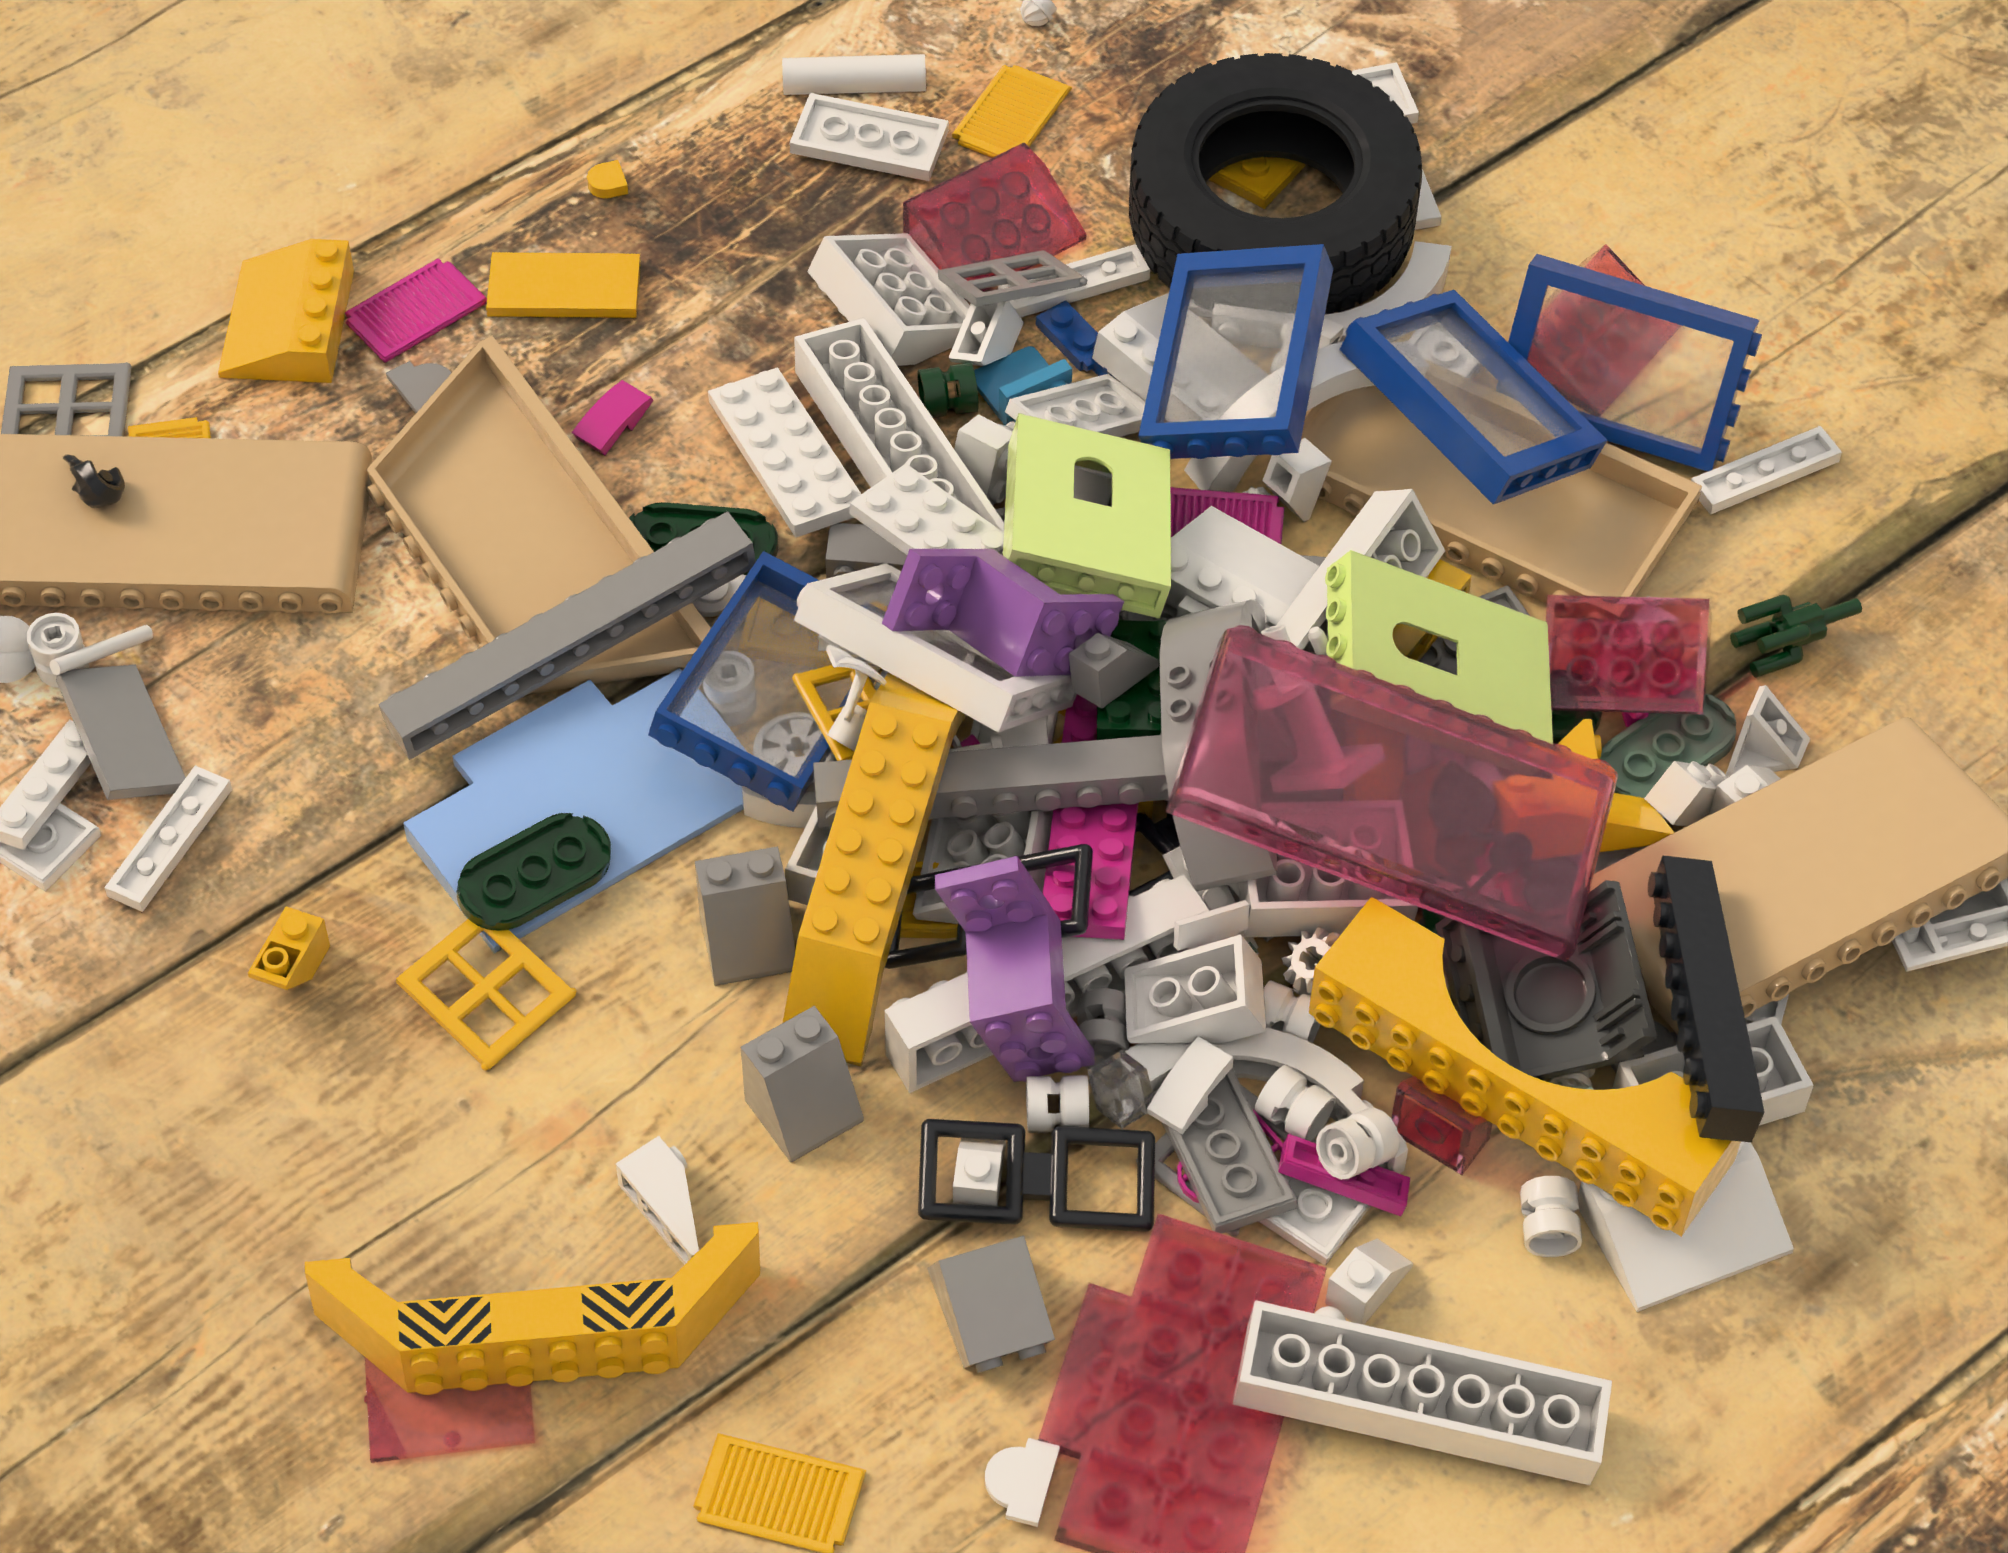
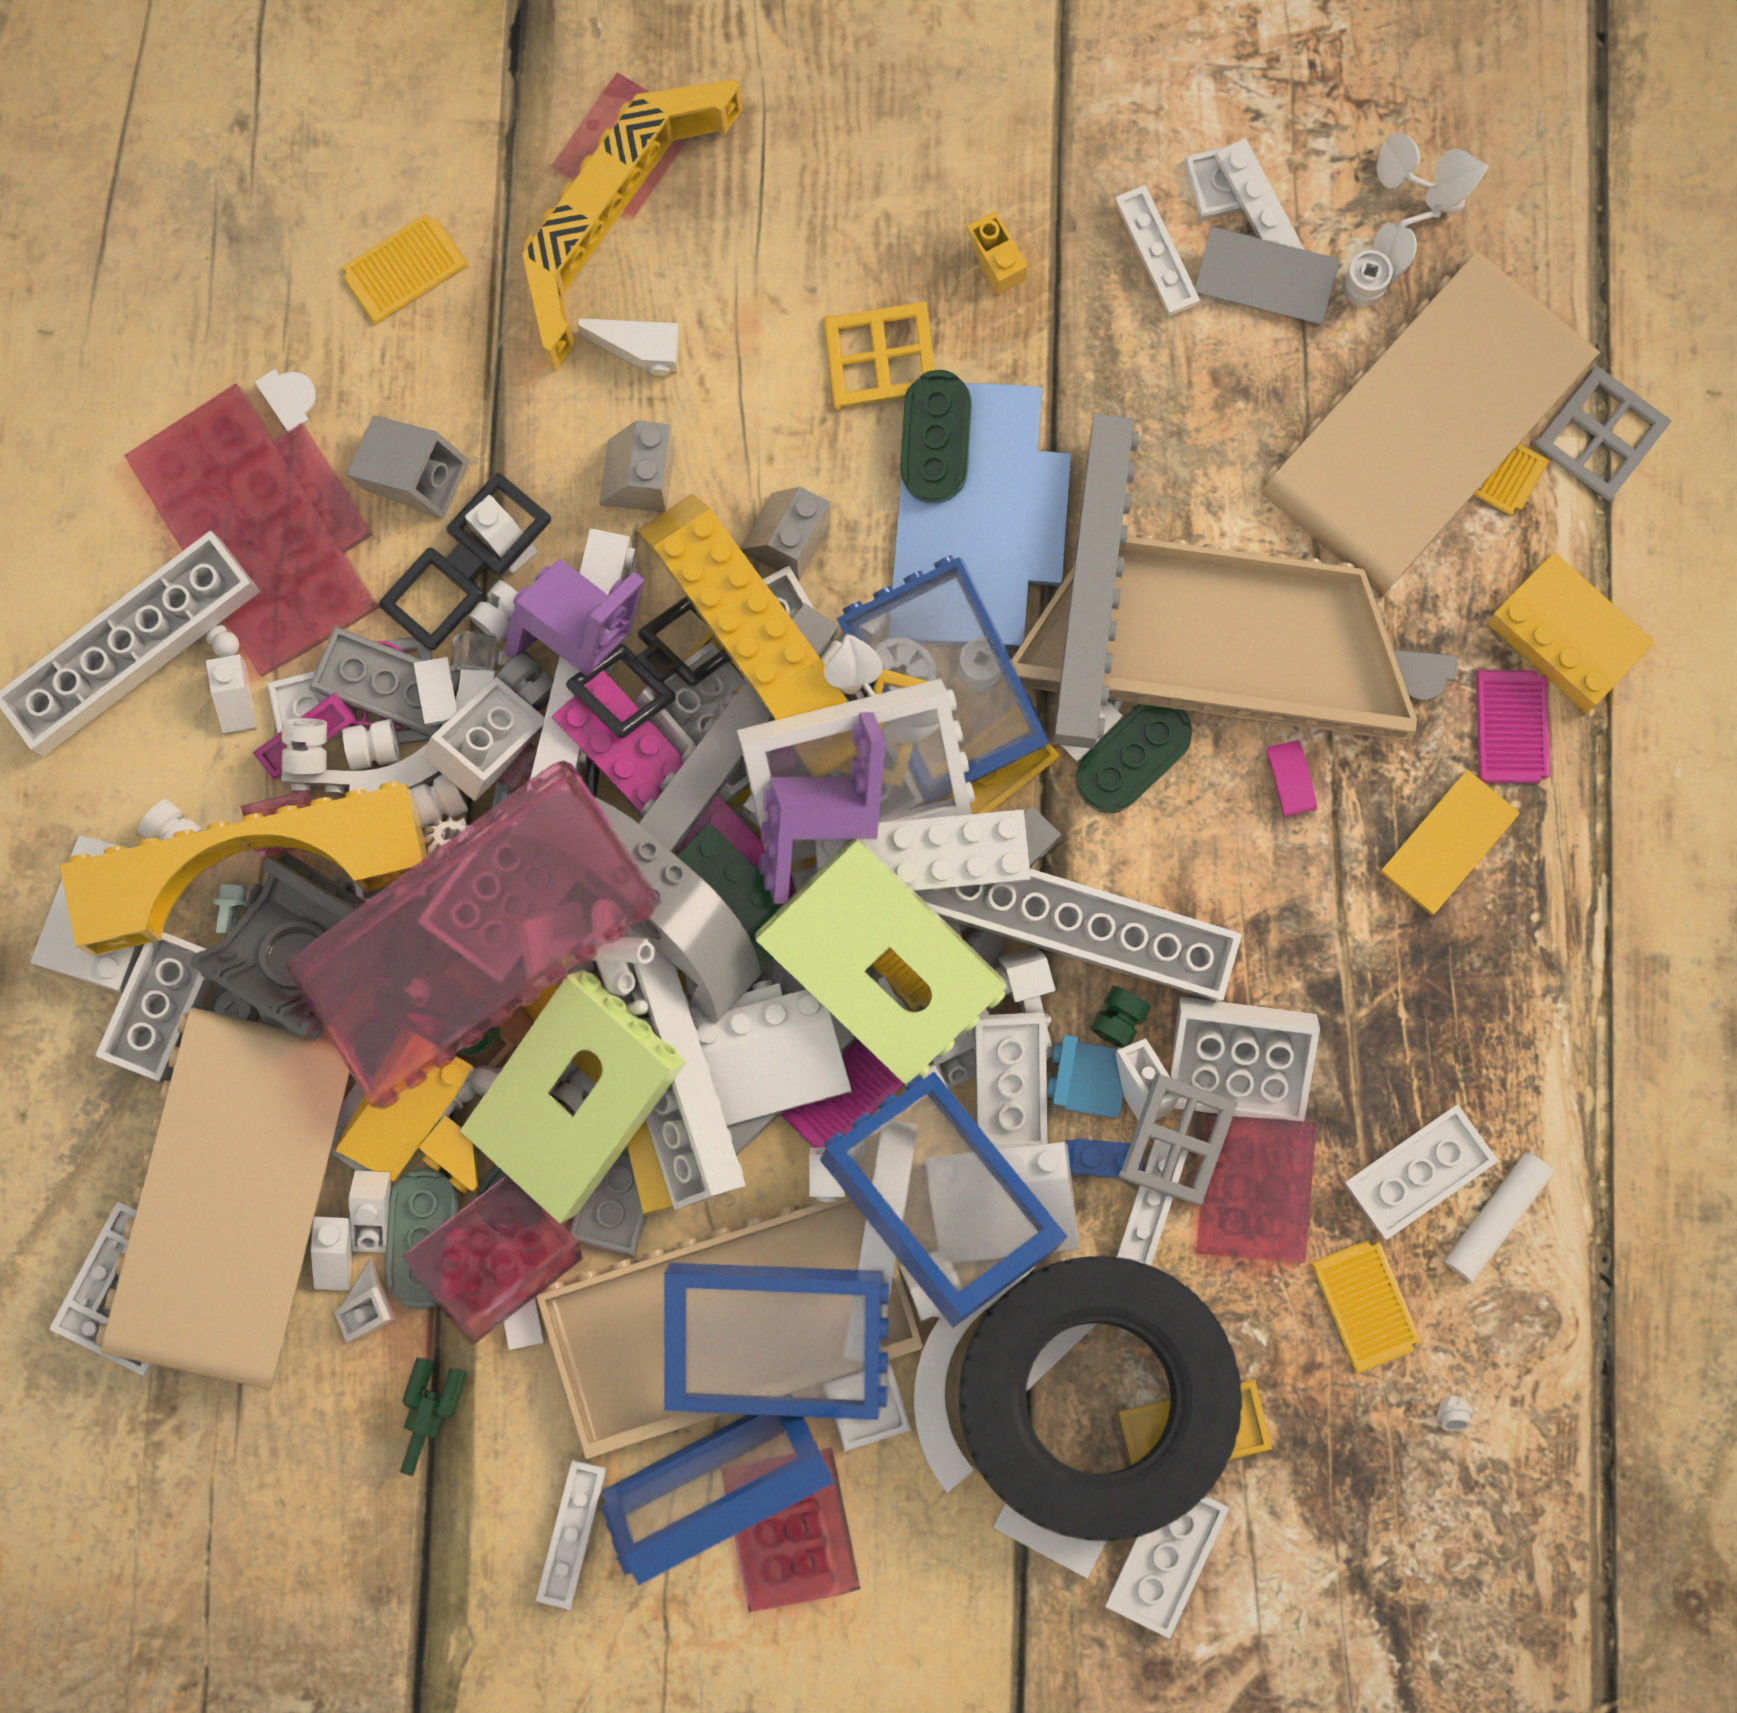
camera: 130 degrees right, 25 degrees up
(93, 487) = (1483, 379): black piece -> none
(101, 650) = (1343, 302): white bar -> none
(607, 180) = (1532, 951): yellow tile -> none
(785, 451) = (1155, 862): white plate -> none
(1107, 668) = (742, 867): light grey slope -> none
(1211, 926) = (518, 773): white piece -> none
(1705, 1000) = (175, 1003): black brick -> none

